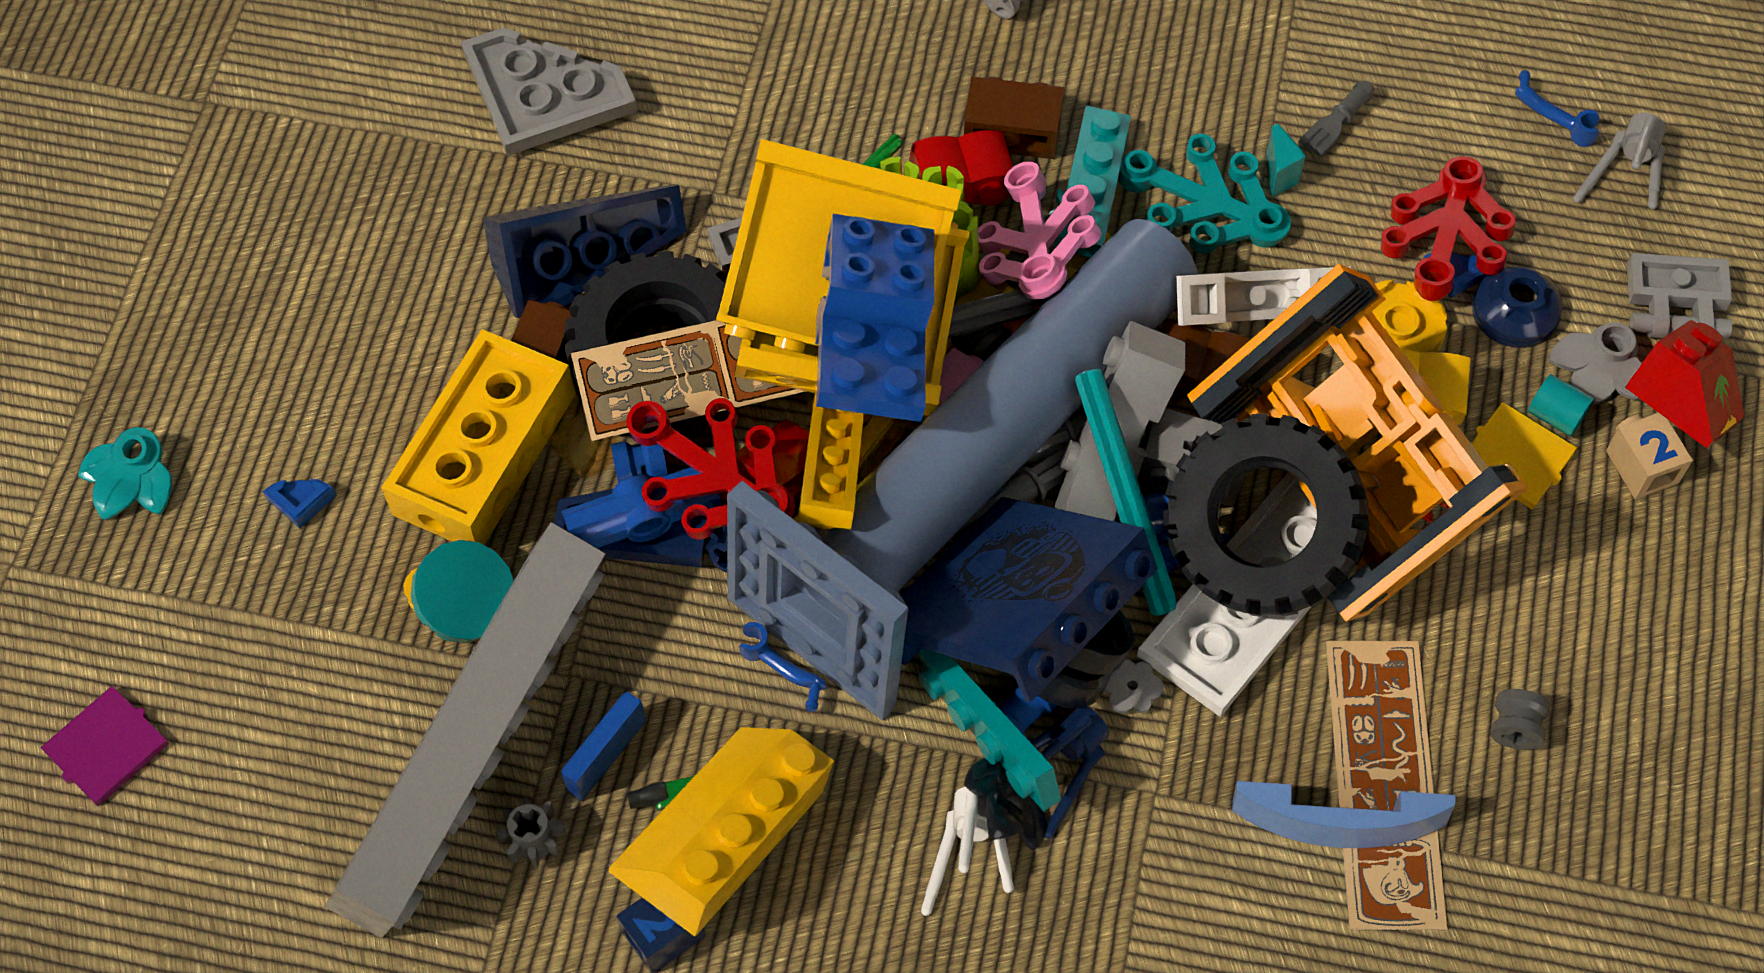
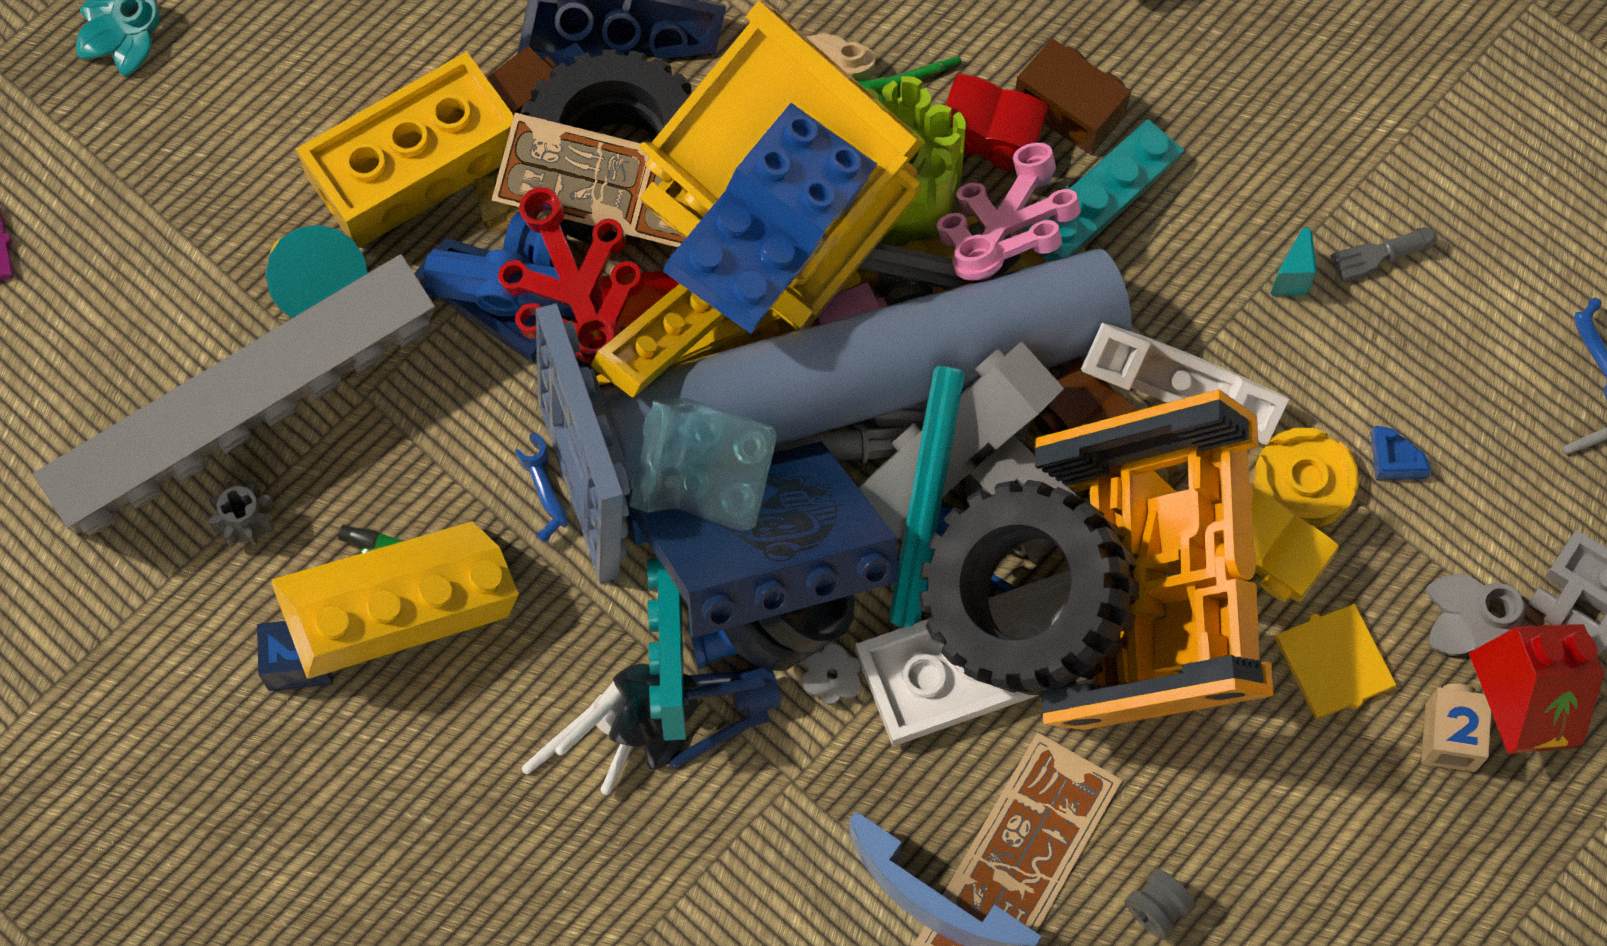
camera: 30 degrees right, 5 degrees up
(300, 498) = (242, 123): blue tile -> none
(603, 745) = (346, 473): blue tile -> none
(947, 551) = (703, 463): none -> clear light blue bracket
(1209, 200) = (1204, 268): teal plant -> none
(1458, 182) = (1415, 407): red plant -> none
(1513, 321) = (1422, 539): dark blue piece -> none
(1560, 405) = (1404, 636): teal beam -> none

